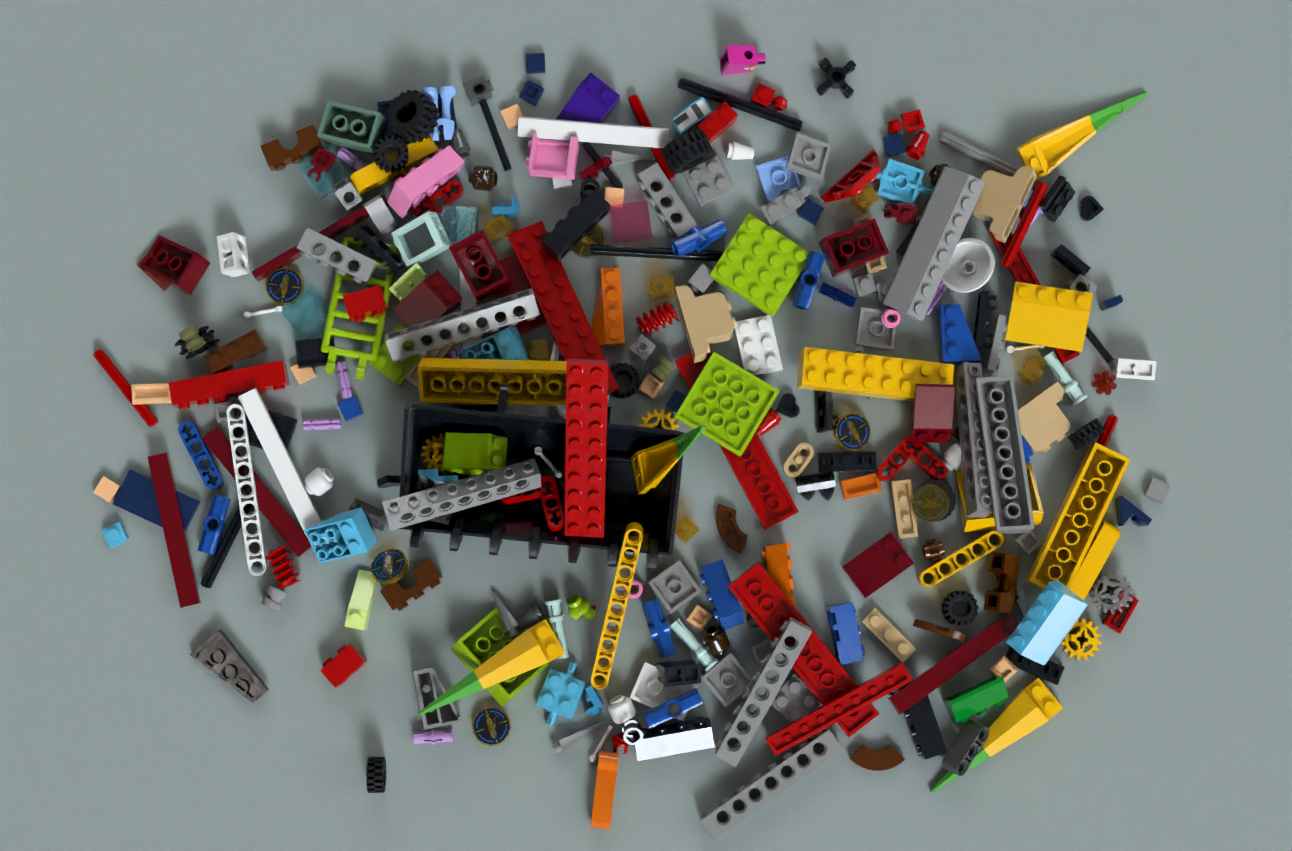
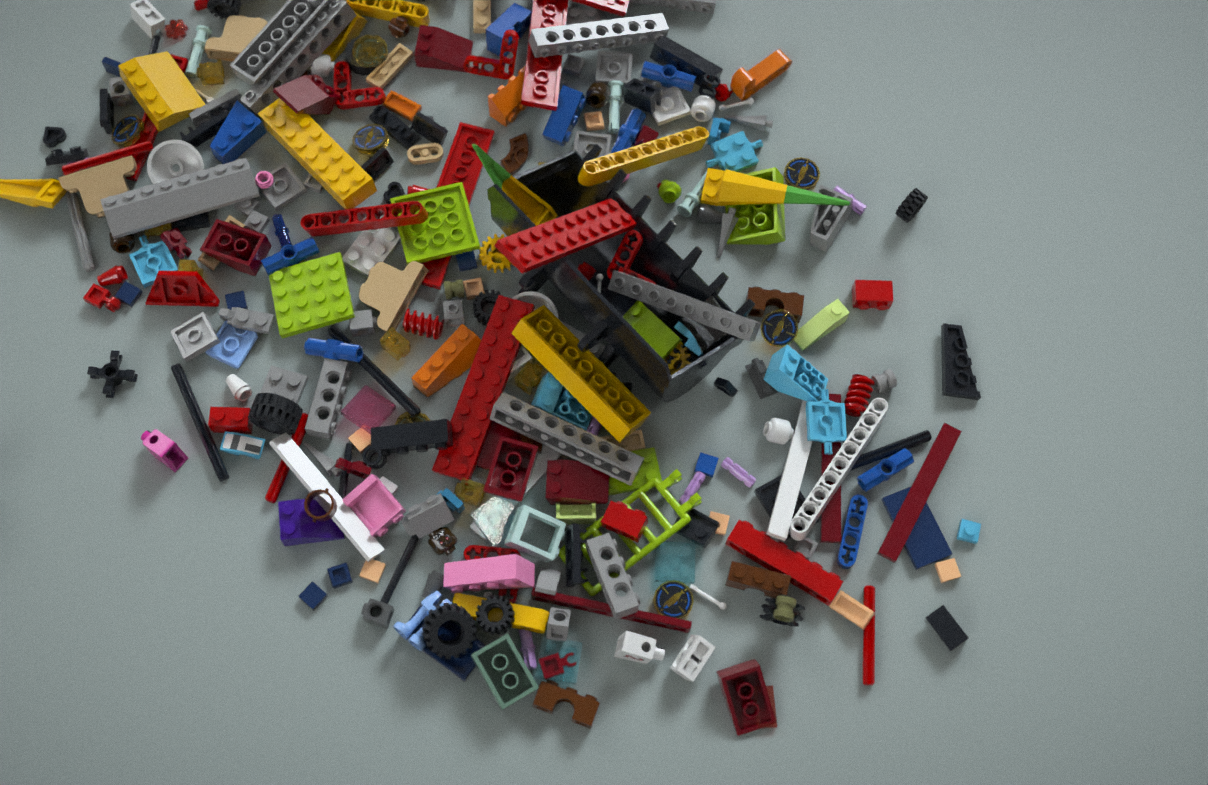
camera: 135 degrees left, 15 degrees down
(72, 442) = (947, 627): none -> black hinge
(276, 226) = (630, 648): none -> white torso
(287, 518) = (826, 421): none -> medium azure plate
(506, 181) = (427, 516): none -> light grey hinge
(582, 106) = (311, 496): none -> reddish brown piece
(640, 637) = (646, 135): none -> dark red bracket
(764, 96) = (176, 411): red plate -> none
(784, 347) = (371, 222): none -> red beam
(814, 591) = (499, 65): none -> red beam
(1037, 261) = (127, 131): none -> tile

